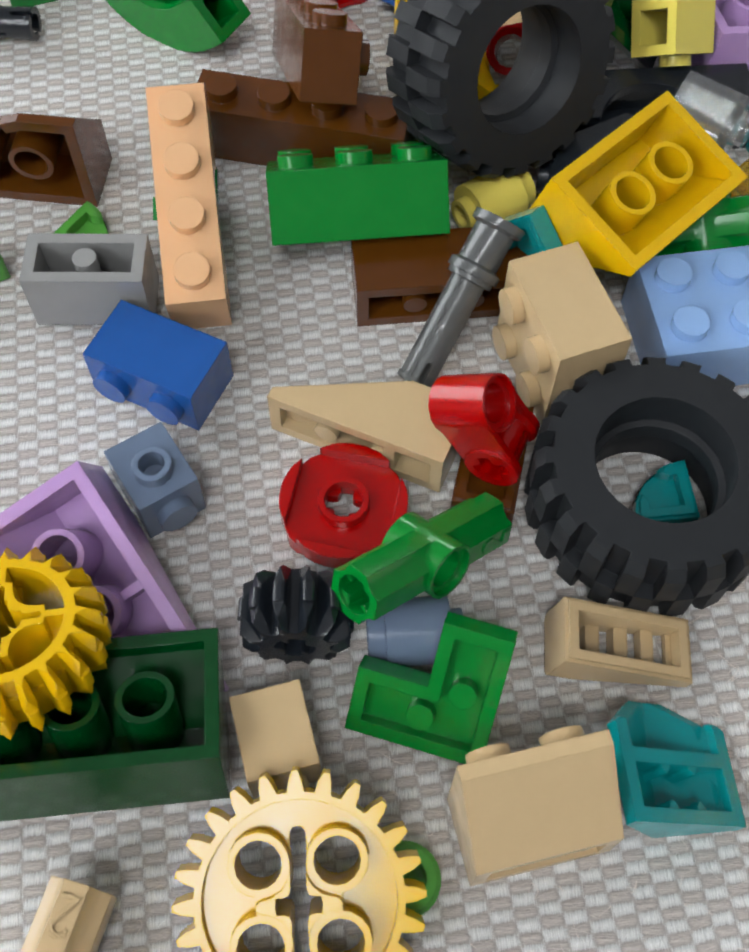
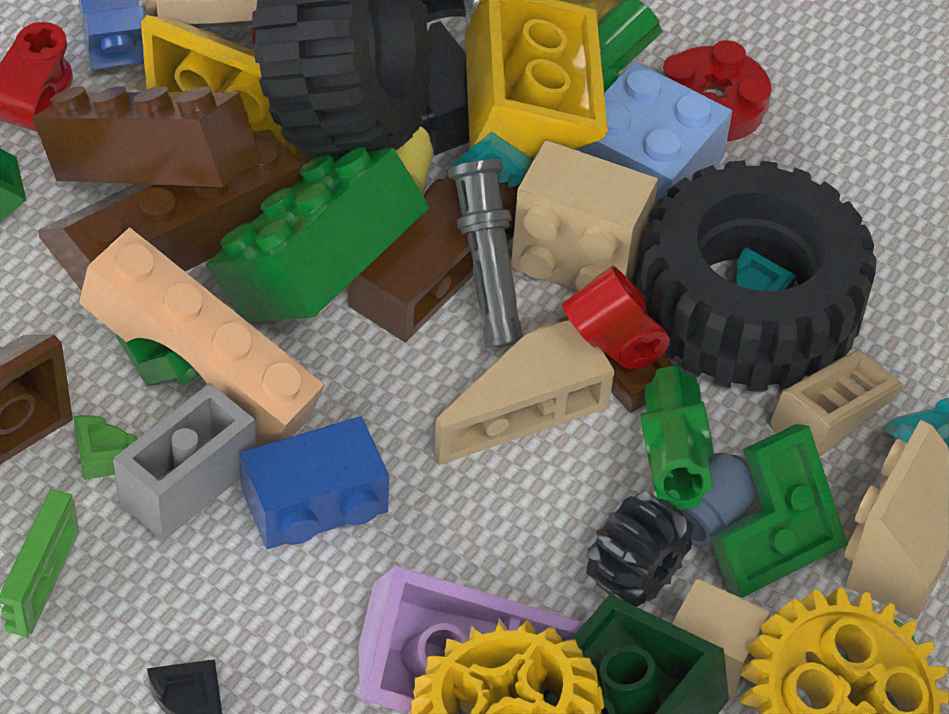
camera: 50 degrees left, 10 degrees down
(156, 480) = (427, 546): sand blue brick -> none
(340, 470) = (563, 496): red plate -> none

